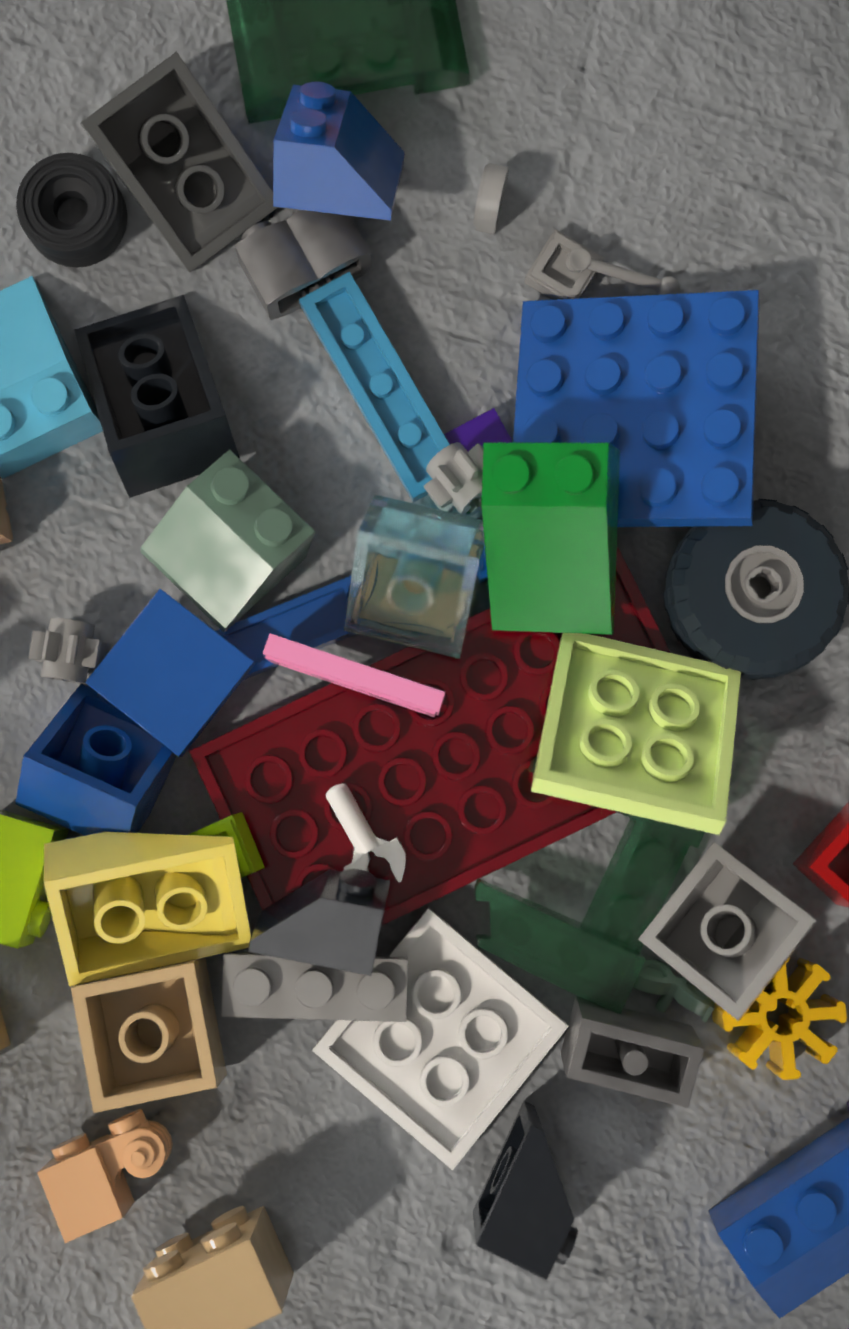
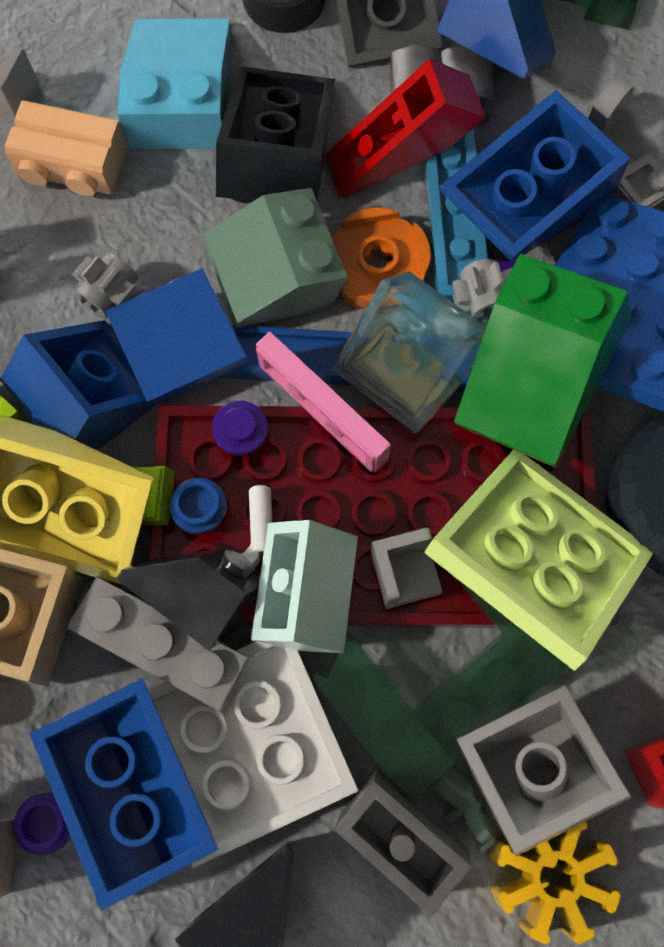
camera: 25 degrees right, 10 degrees down
(284, 836) = (198, 505): none -> blue plate
(285, 738) = (240, 428): none -> dark purple plate
(292, 1199) = (40, 825): none -> dark purple plate
(294, 333) = (407, 127): none -> red slope
(337, 452) = (382, 231): none -> orange plate
(357, 1140) = (123, 793): none -> blue slope
(431, 871) = (305, 587): none -> light aqua brick
(453, 327) = (537, 177): none -> blue slope
(514, 805) = (404, 569): none -> light grey panel

